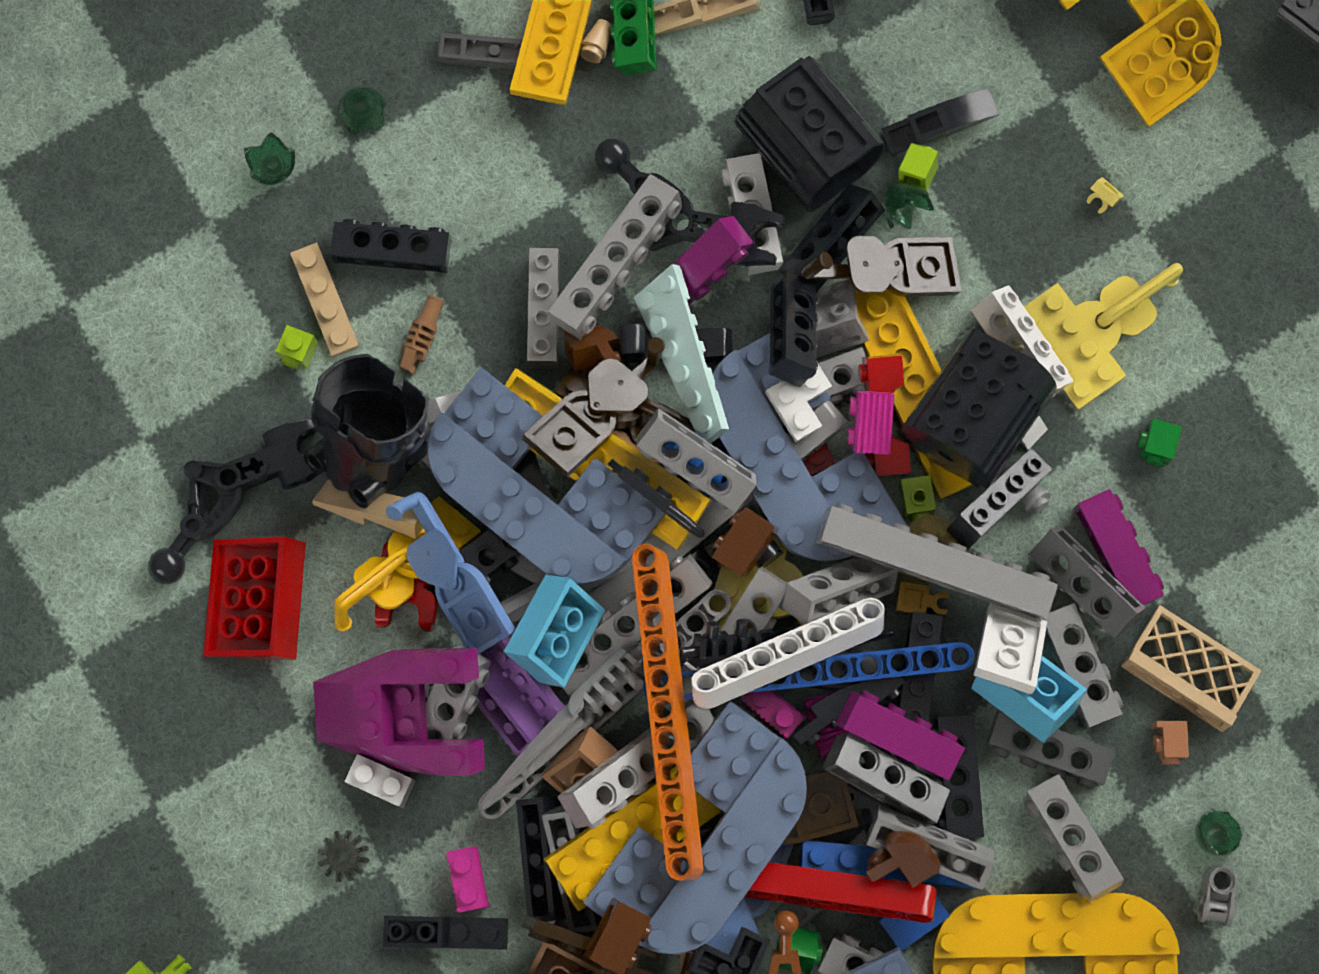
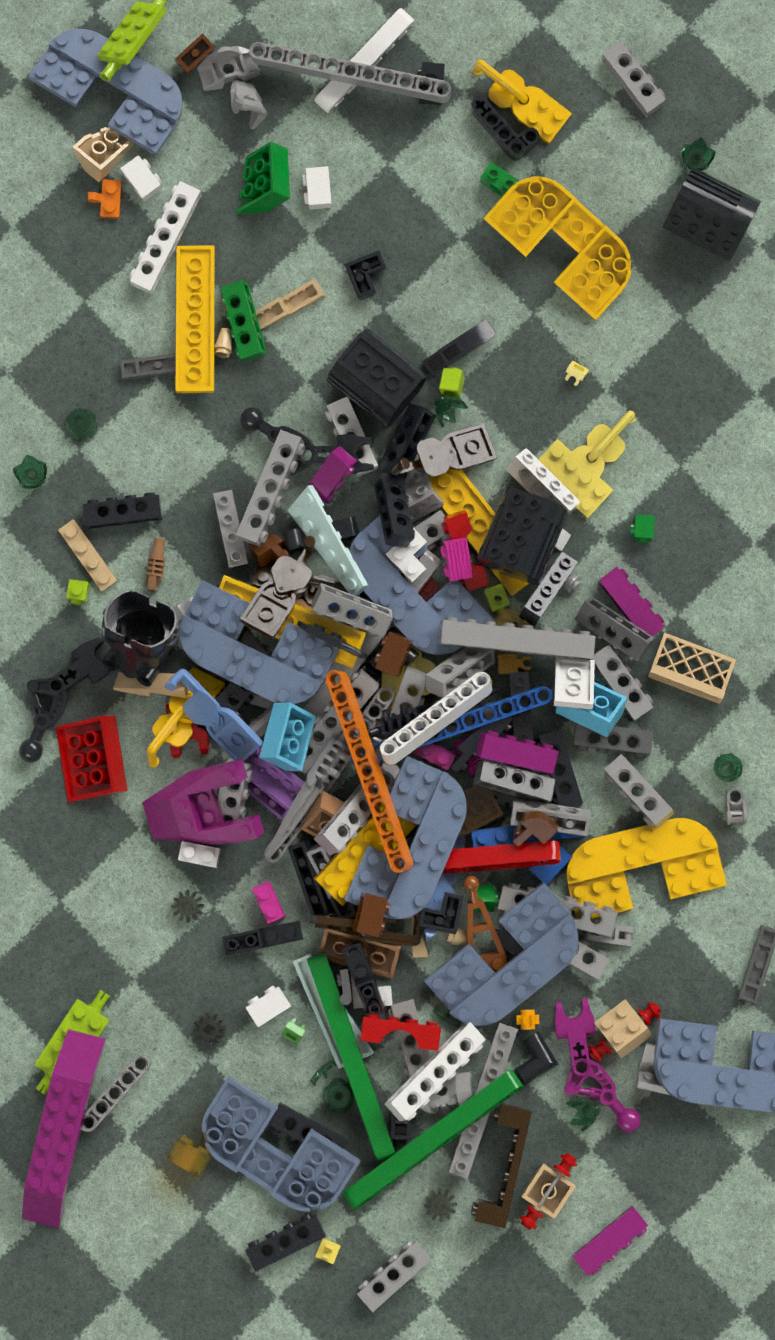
camera: 10 degrees left, 5 degrees up
(1171, 741) = (688, 717): nougat brick -> none

